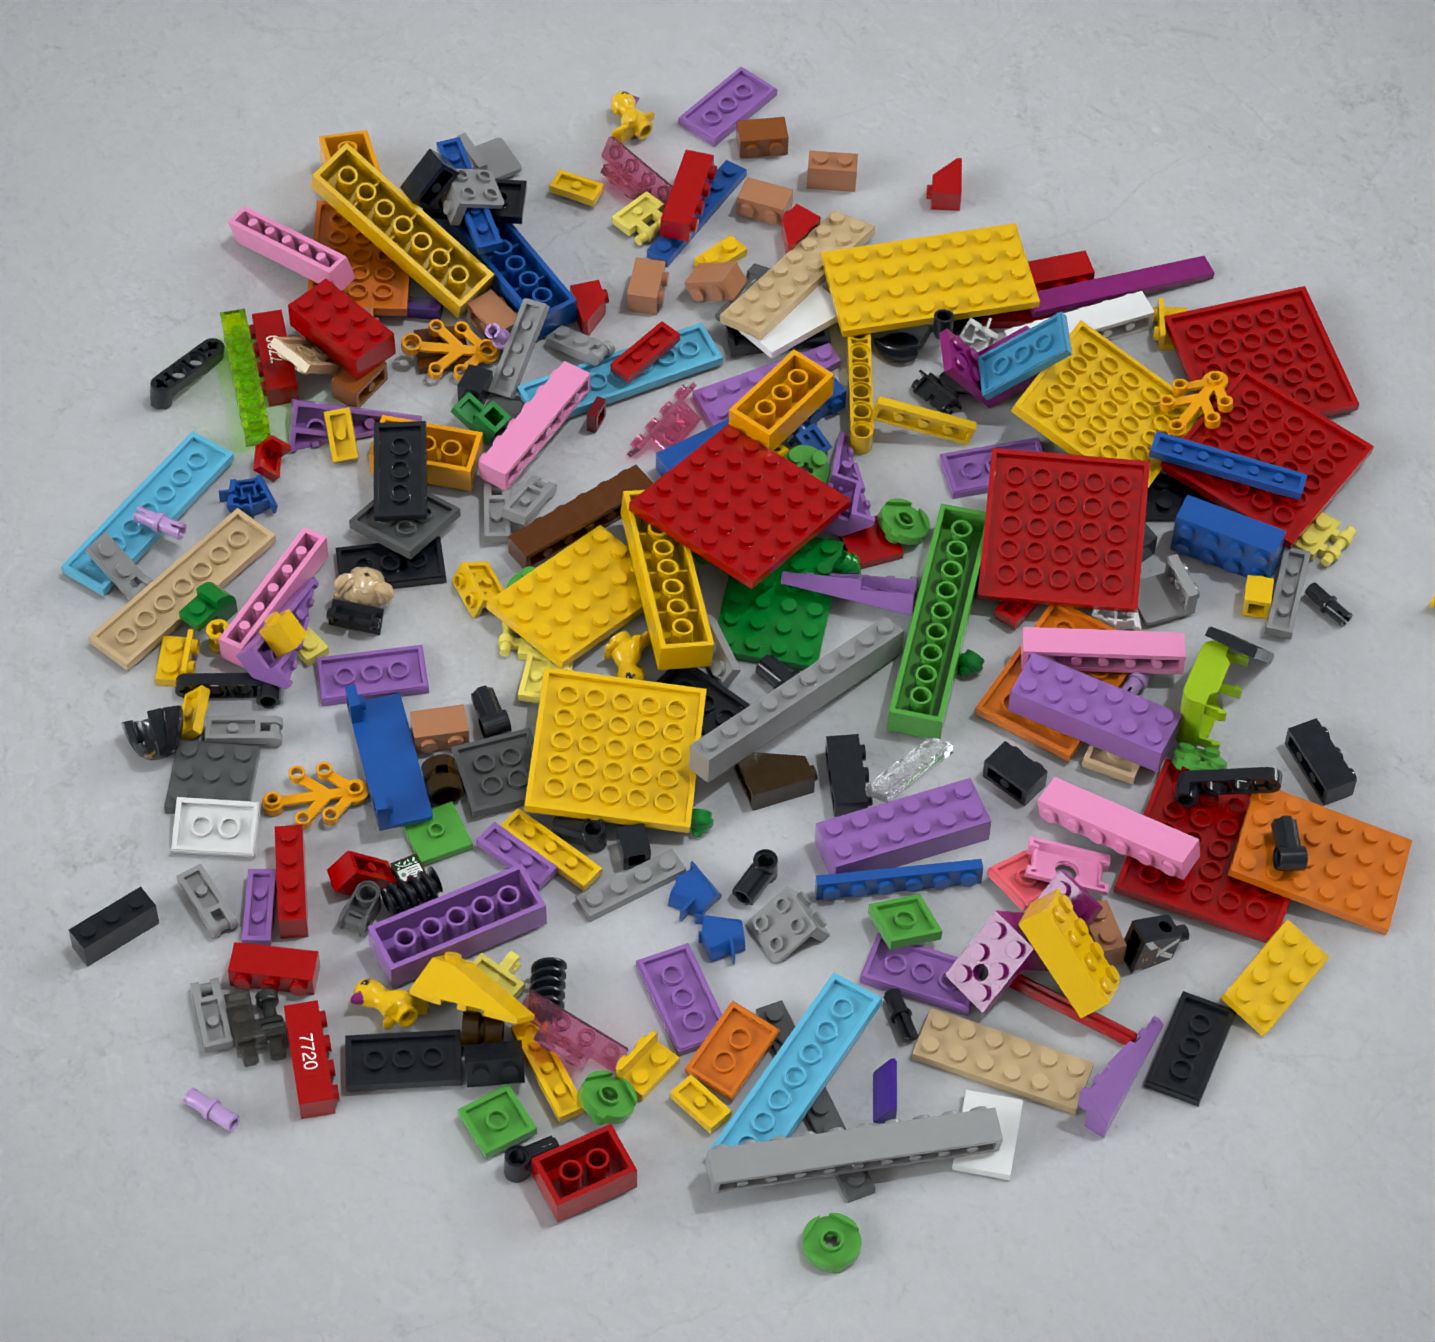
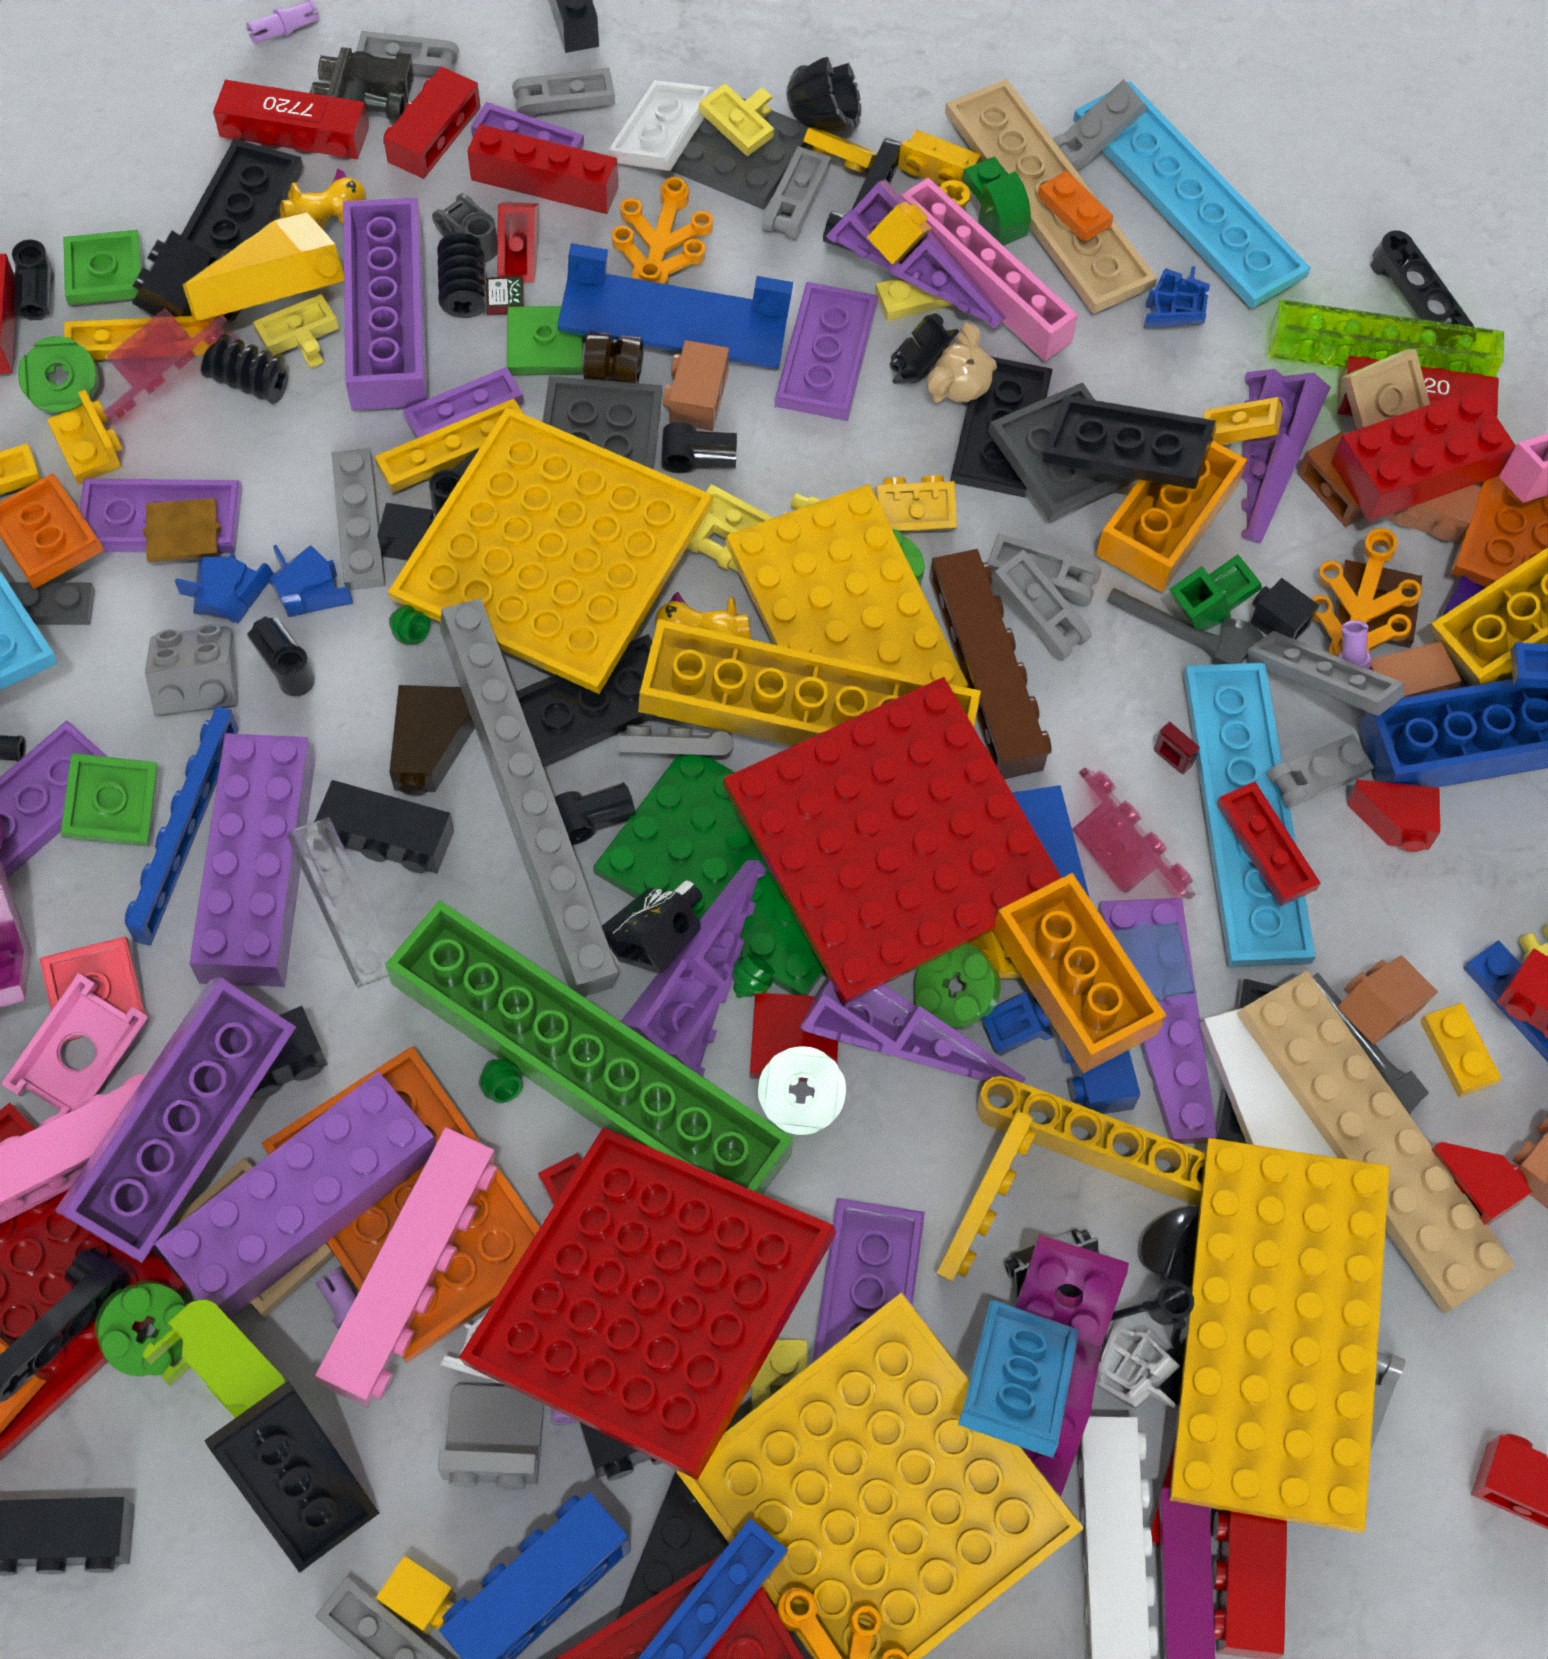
camera: 110 degrees right, 10 degrees up
(159, 522) = (1154, 182): lavender pin -> none
(197, 563) = (1075, 206): none -> orange plate
(203, 771) = (739, 119): none -> light yellow plate
(268, 457) = (1231, 335): red bracket -> none
(534, 425) = (1170, 646): bright pink brick -> none
(646, 286) = (1419, 909): nougat brick -> none
(692, 972) = (181, 530): none -> pearl gold piece
(737, 385) = (1158, 958): none -> clear light blue piece
(845, 611) = (654, 927): none -> black torso
(1089, 770) = (176, 1119): none -> medium lavender brick

